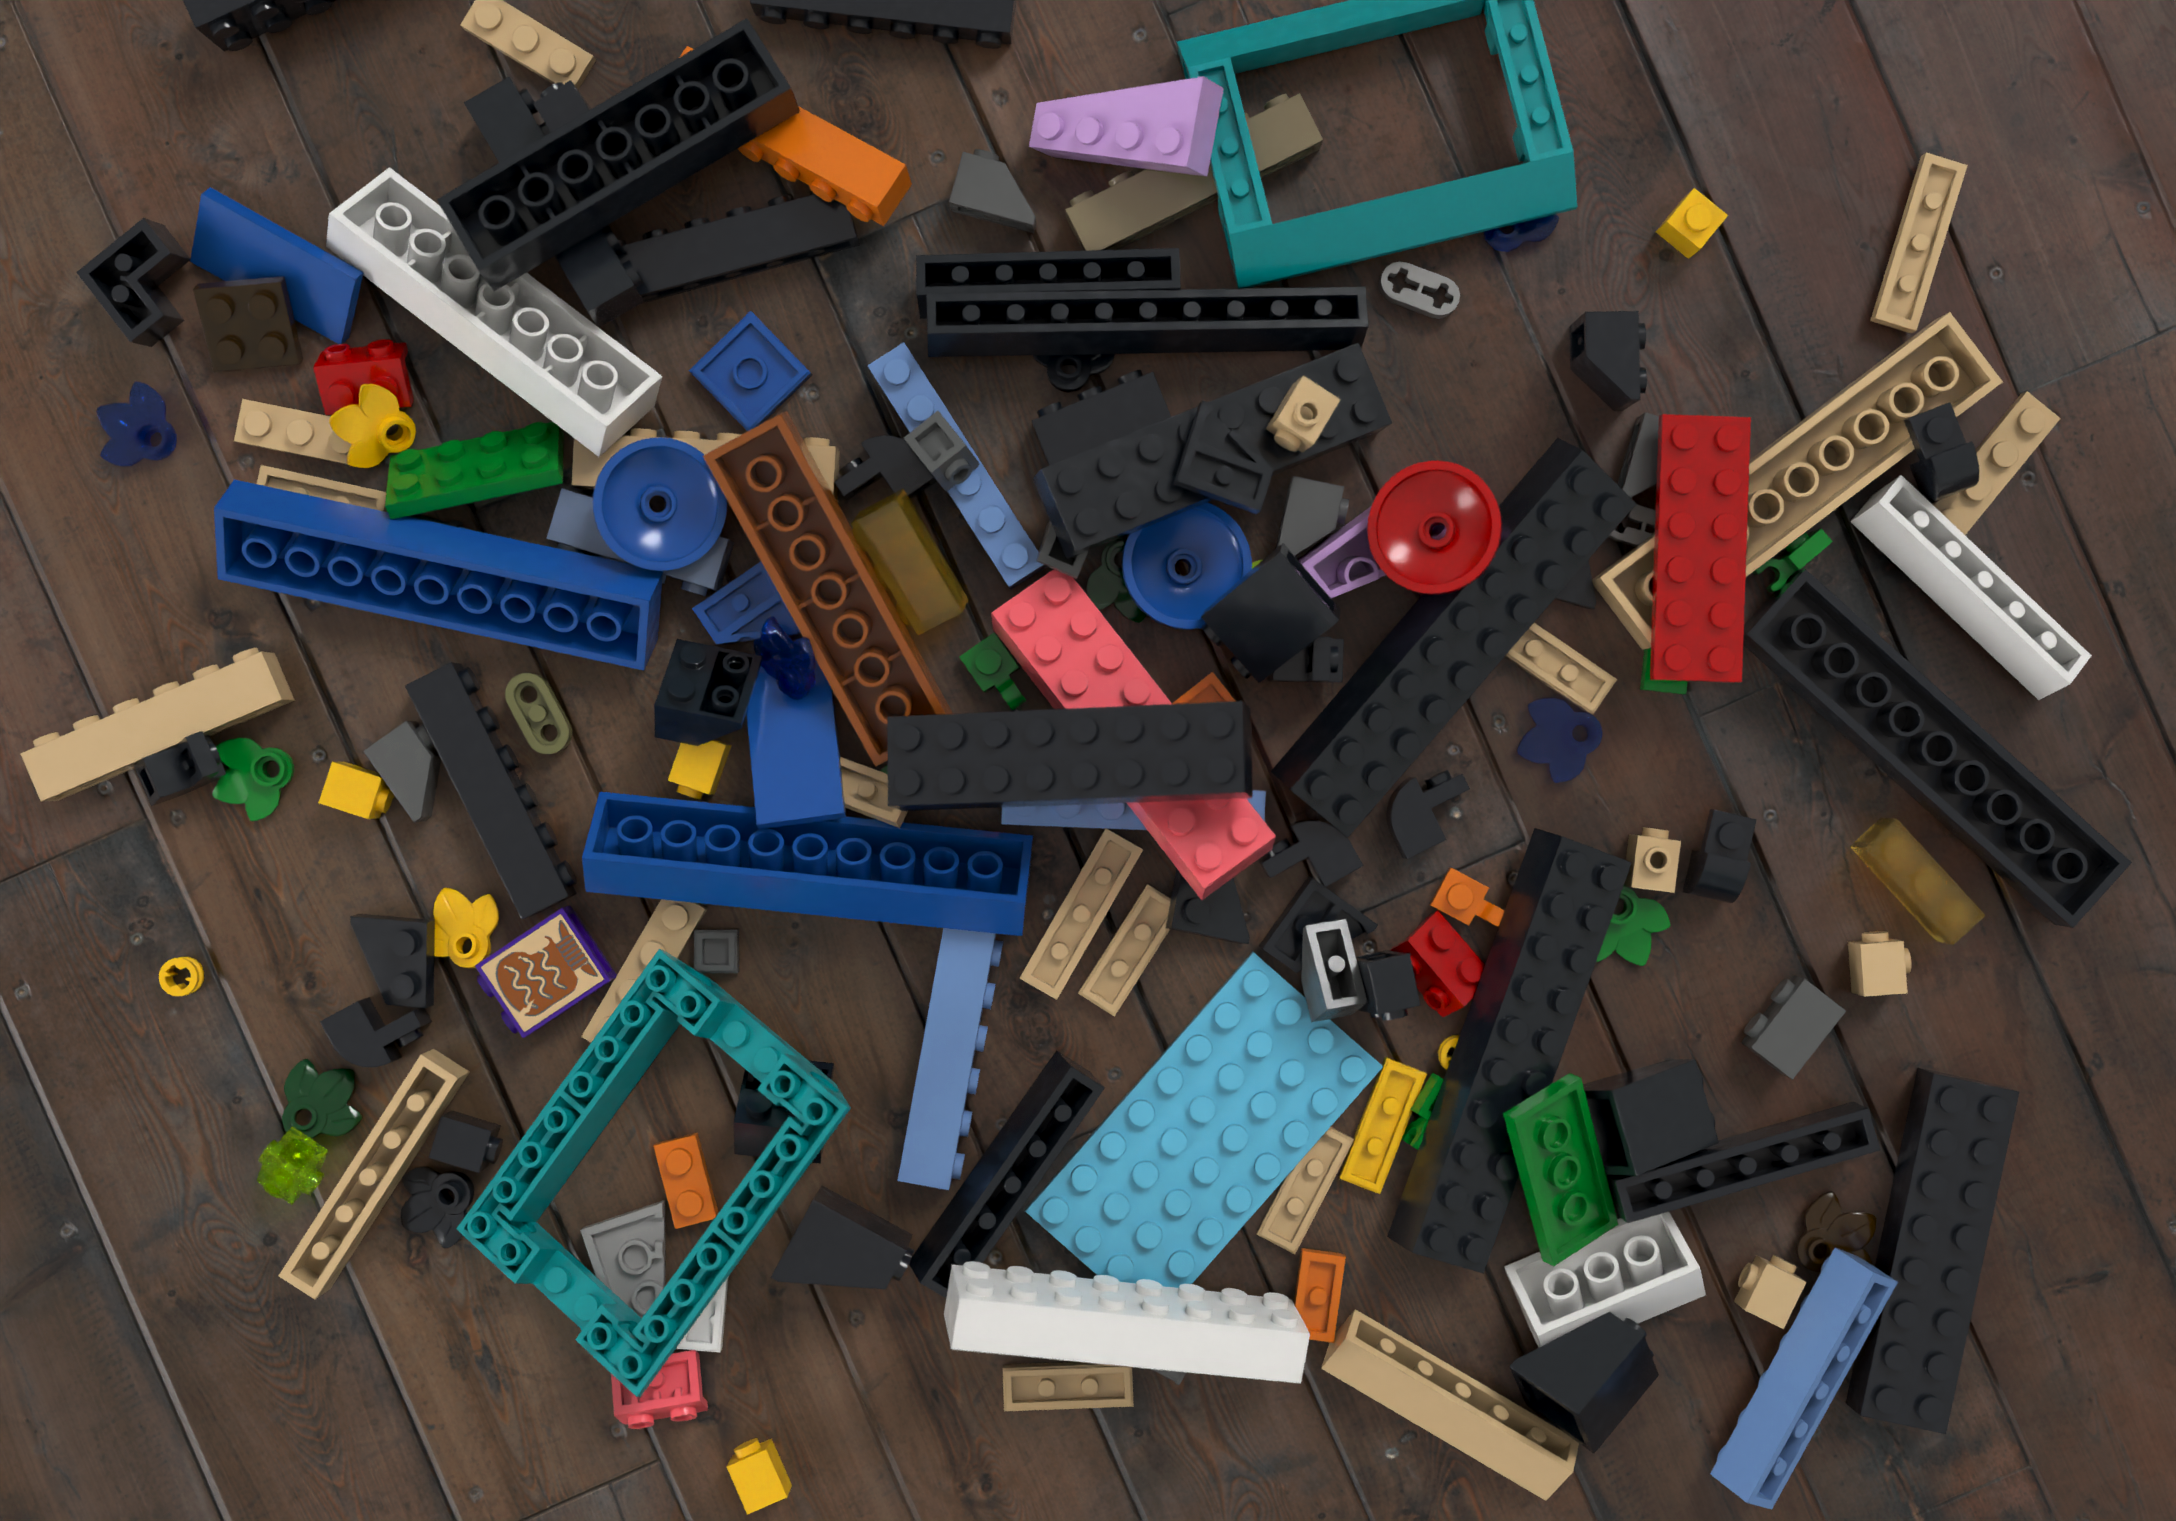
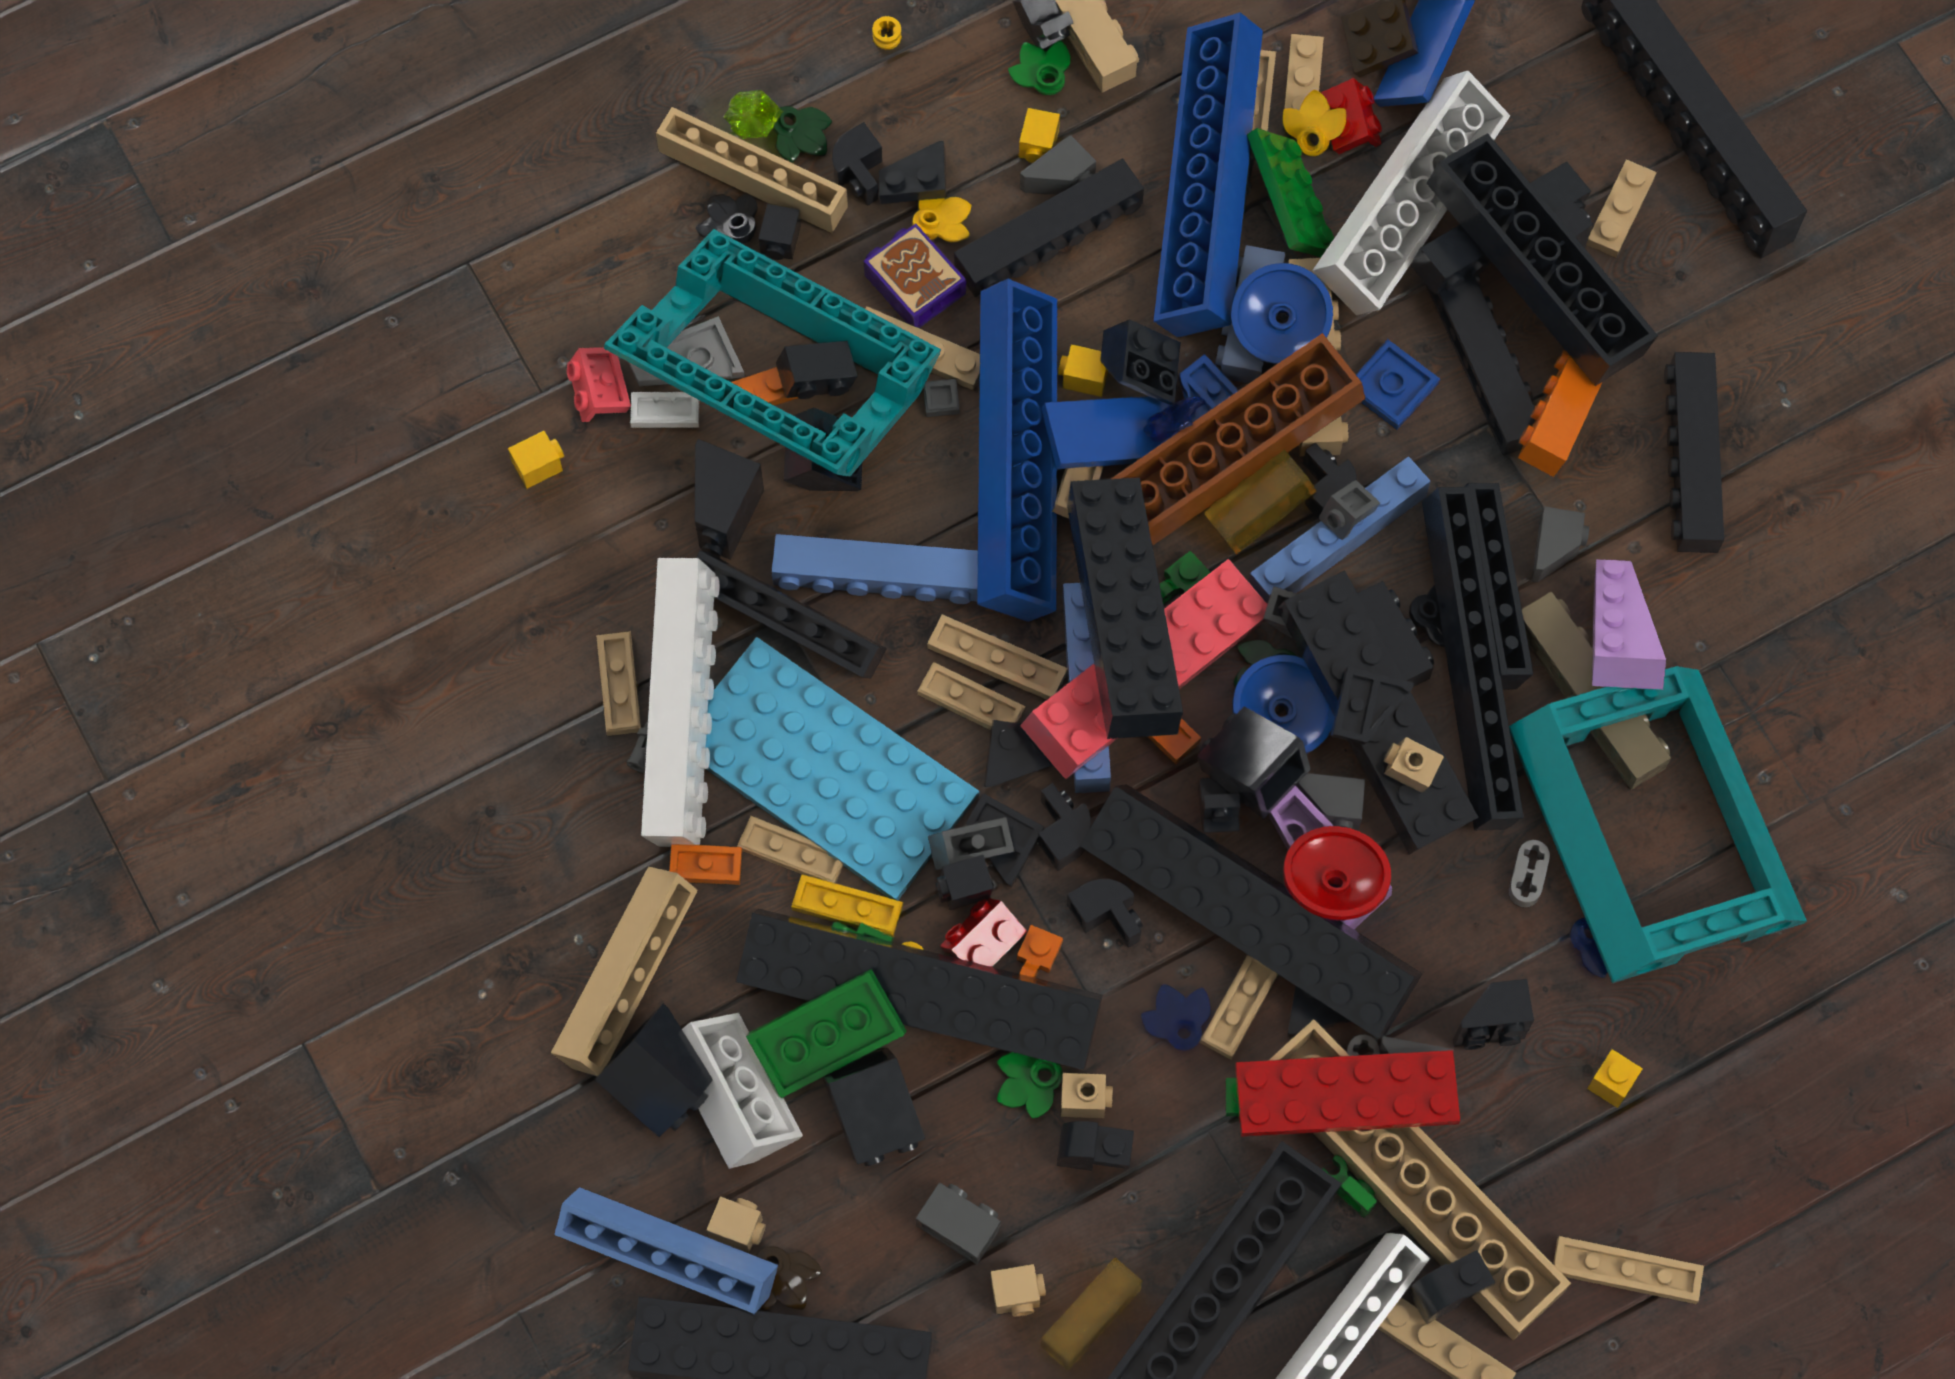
camera: 85 degrees right, 20 degrees down
(539, 714) = (1109, 257): olive plate -> none
(671, 1110) = (816, 369): none -> black brick
(1747, 1161) = (843, 1186): black brick -> none

